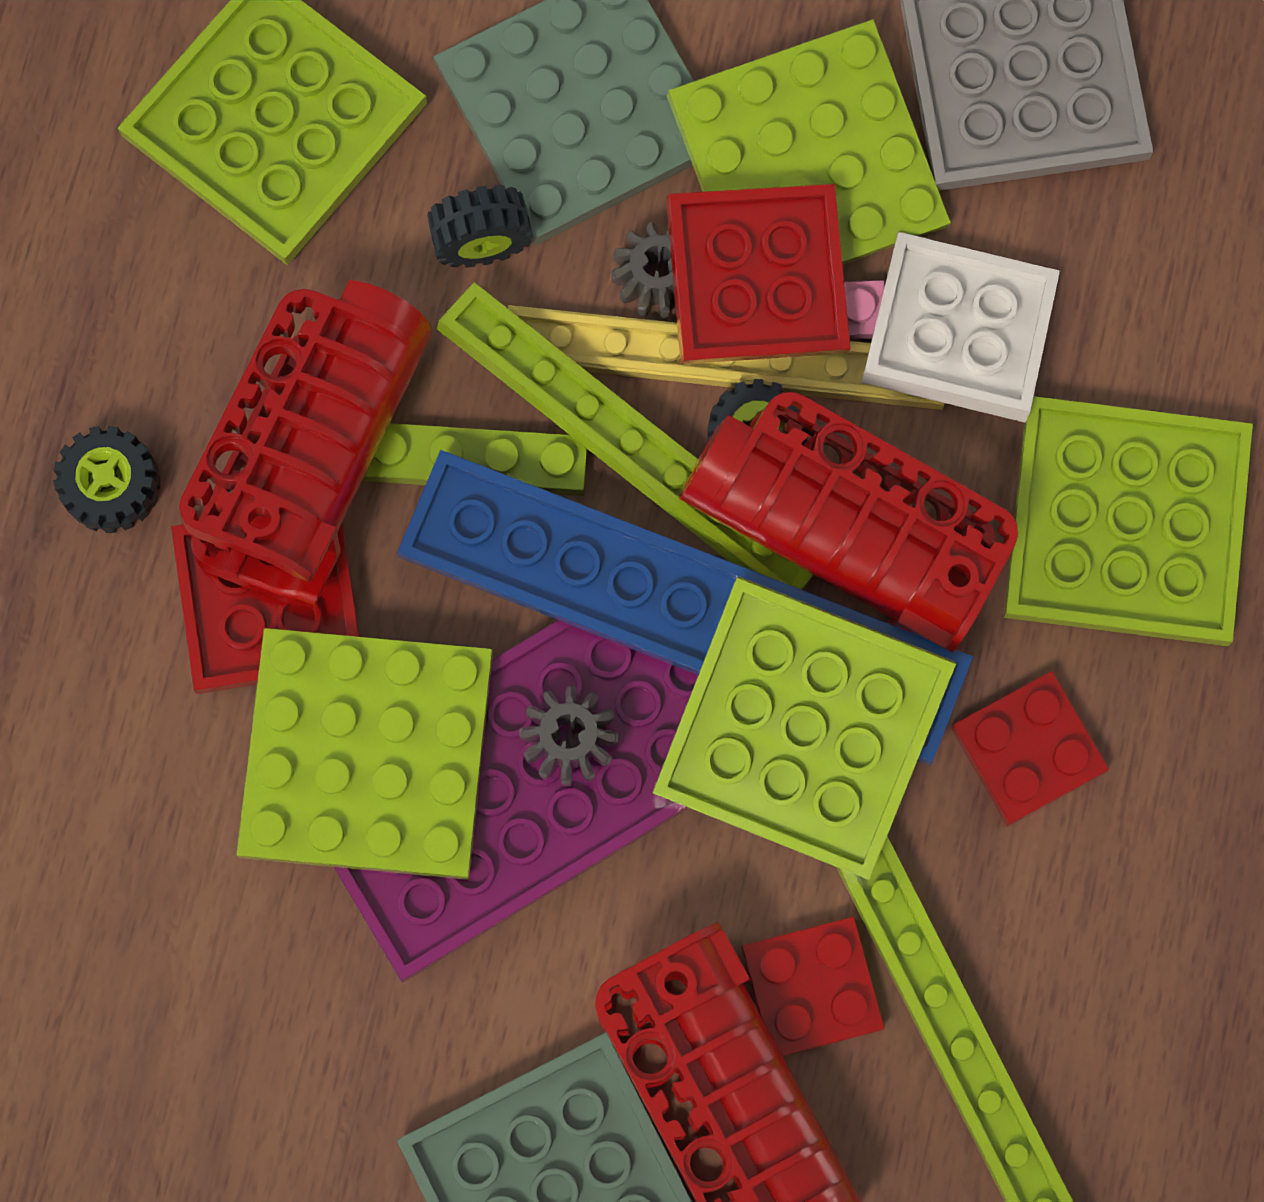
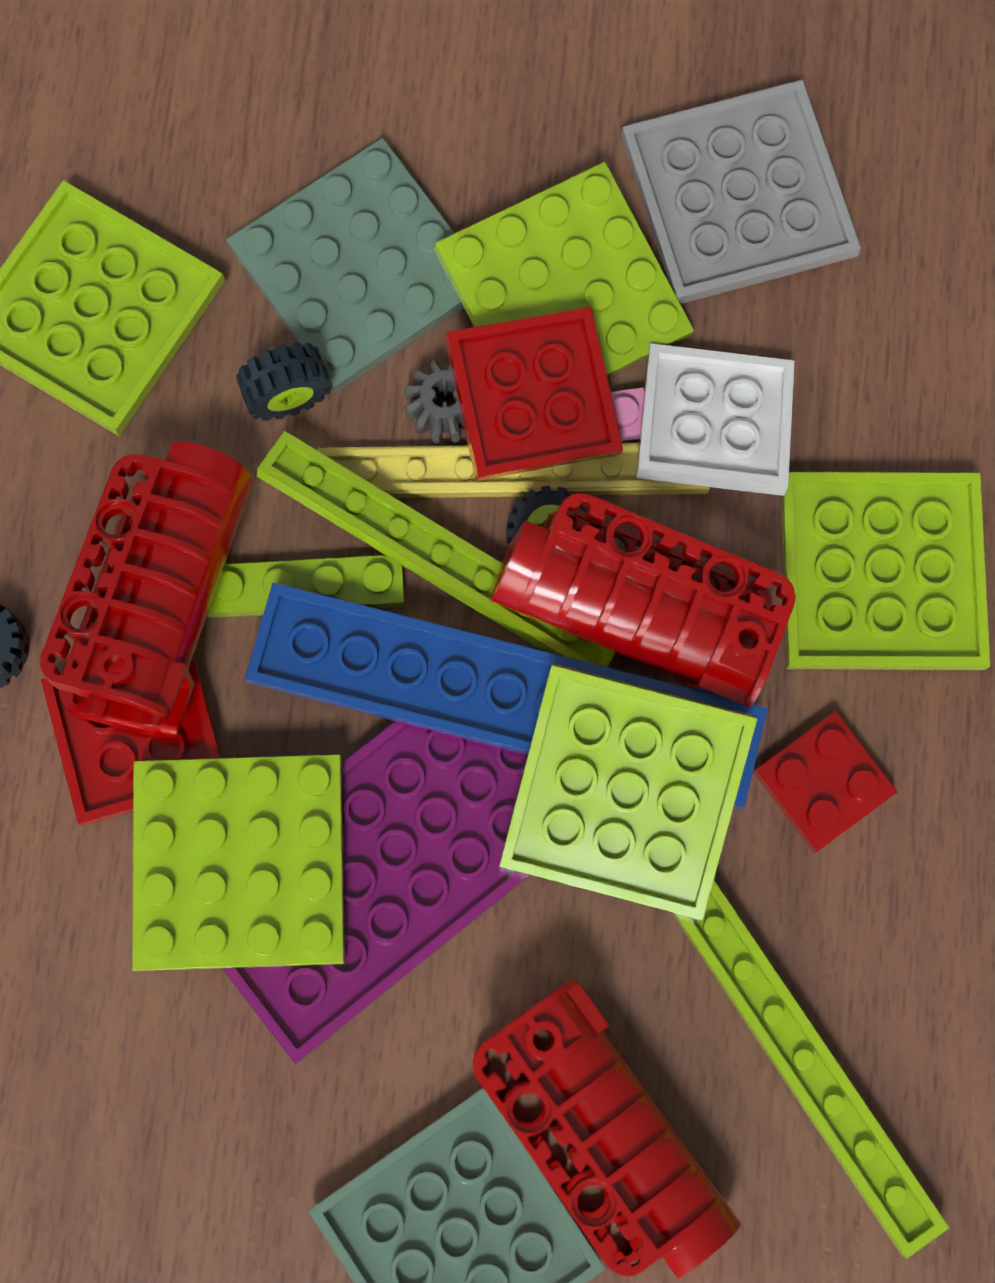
camera: 10 degrees left, 0 degrees up
(589, 739) = (400, 822): dark grey gear -> none
(813, 986) = (663, 1020): red plate -> none

